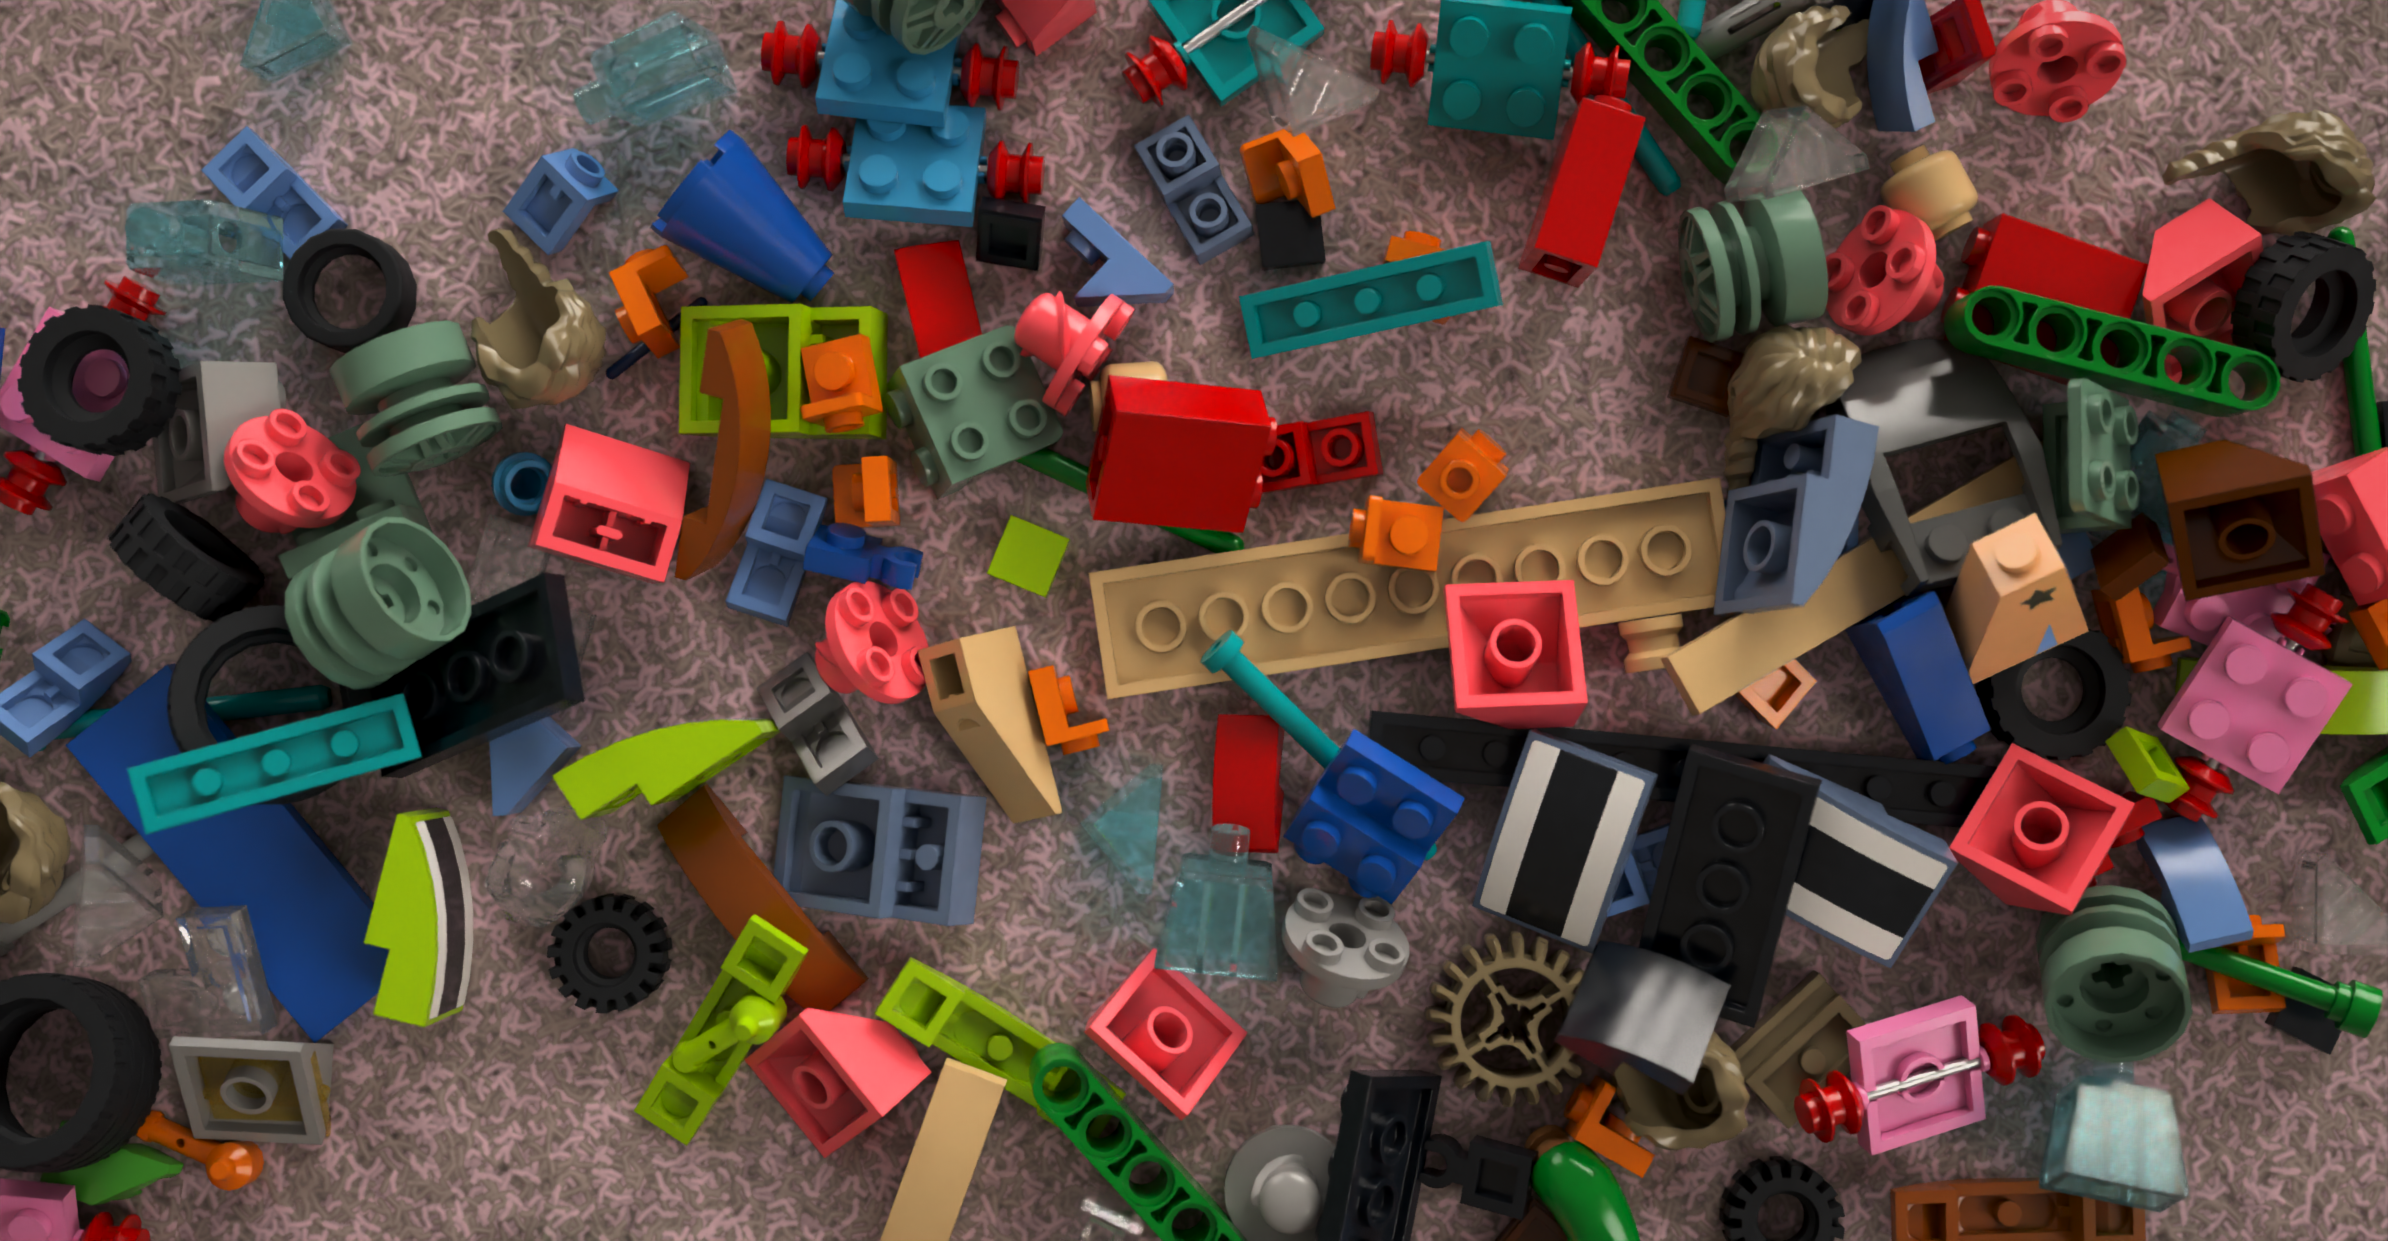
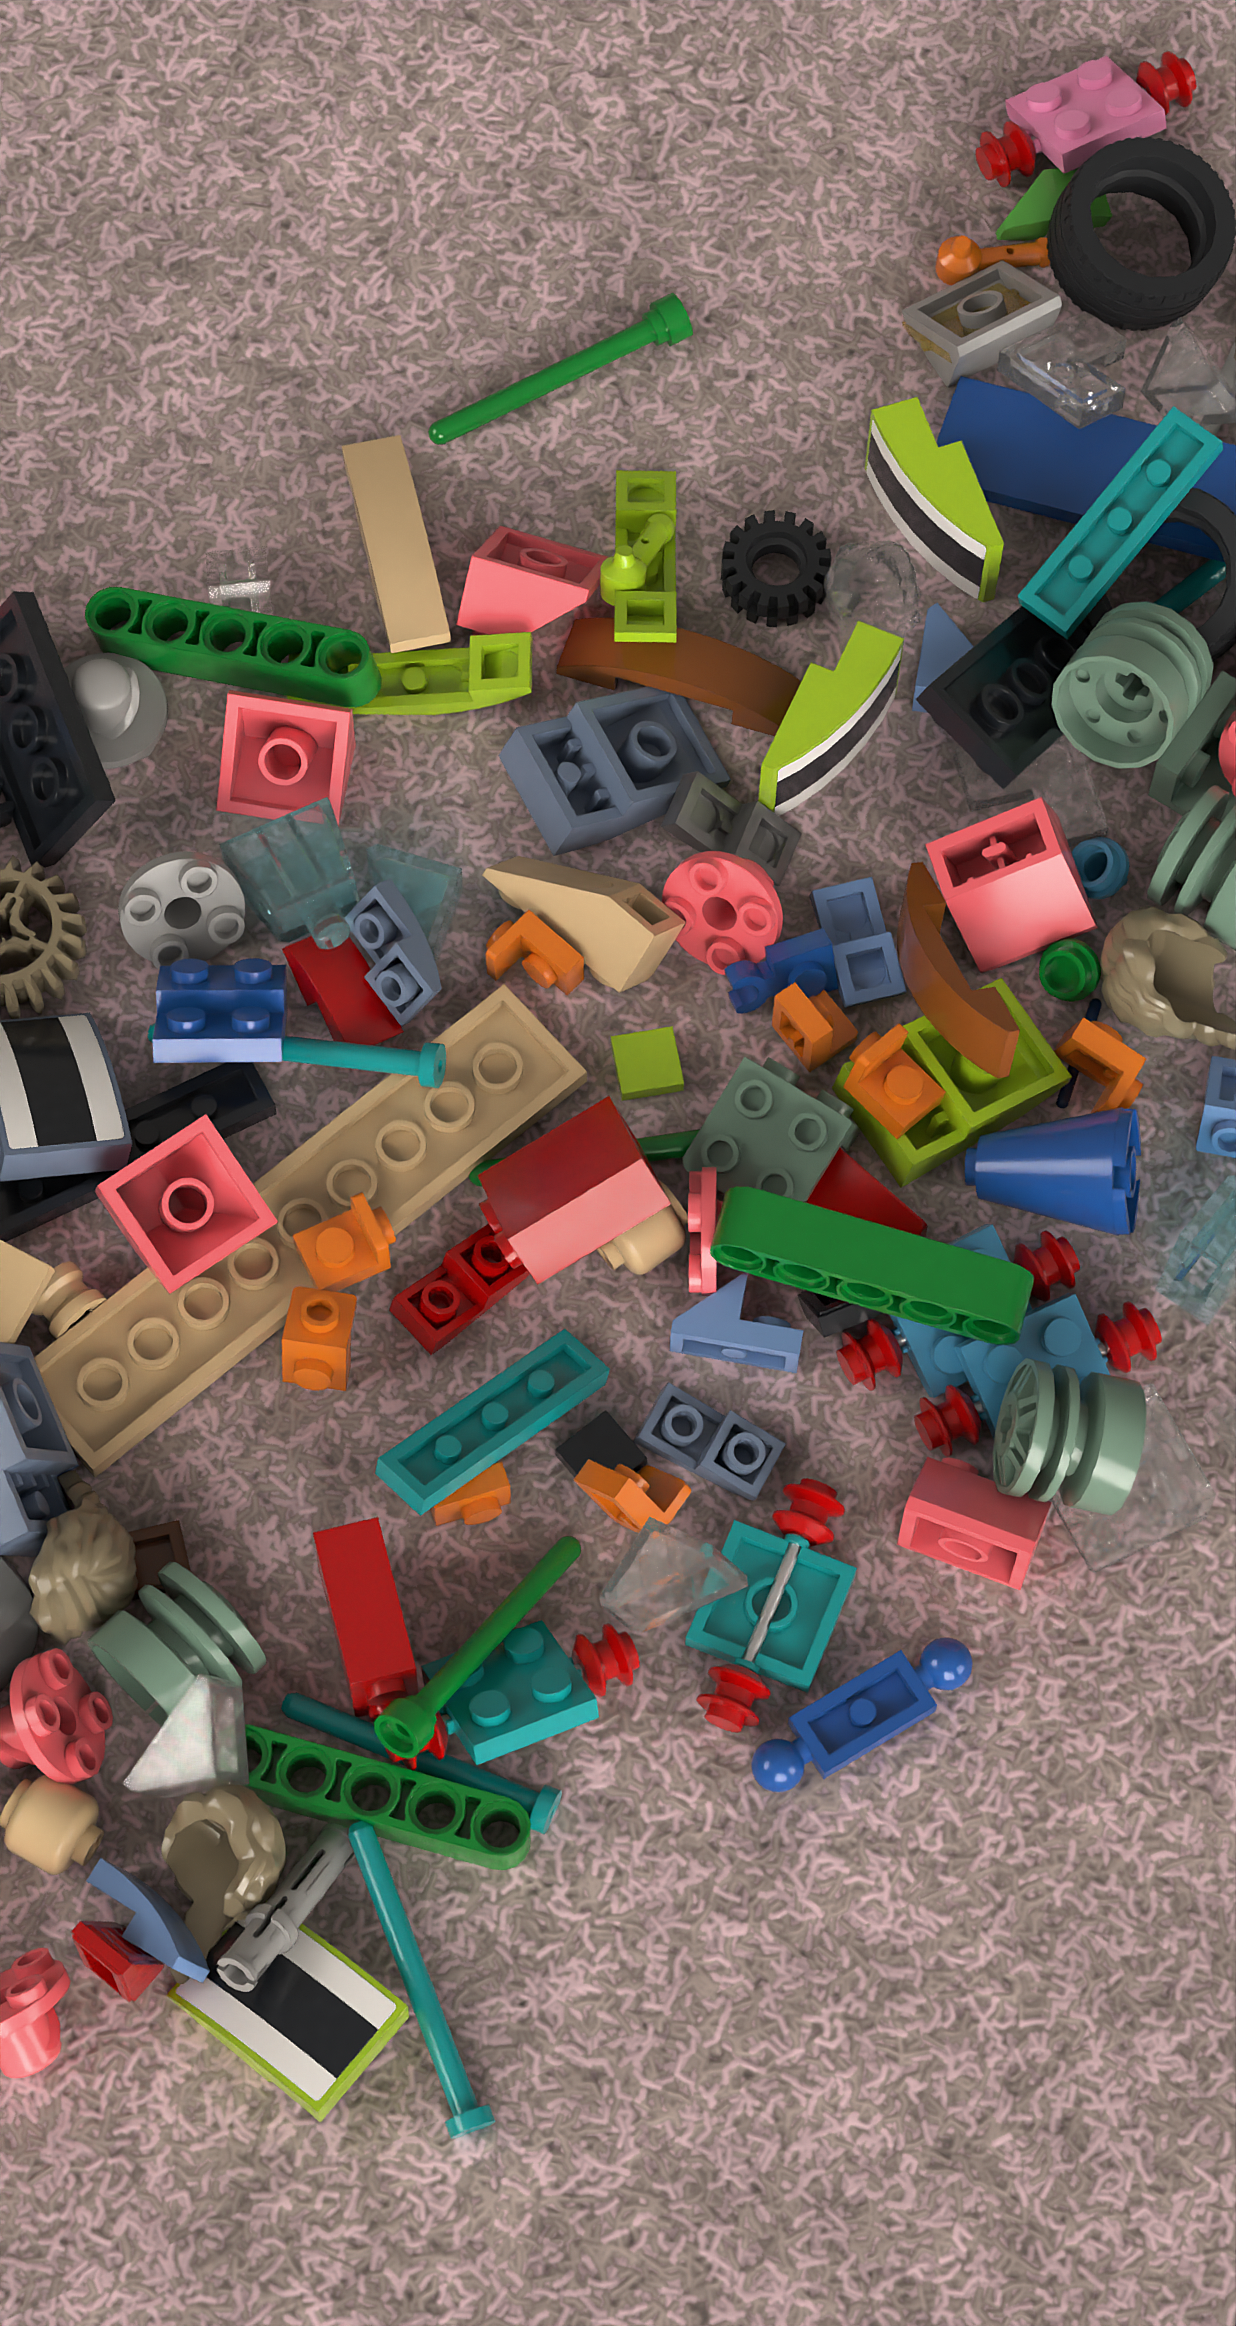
camera: 145 degrees right, 20 degrees down
(615, 405) = (1069, 970): none -> green plate
(976, 209) = (872, 1265): none -> green beam
(1186, 760) = (392, 937): none -> sand blue slope
(1611, 62) = (409, 1722): none -> green piece

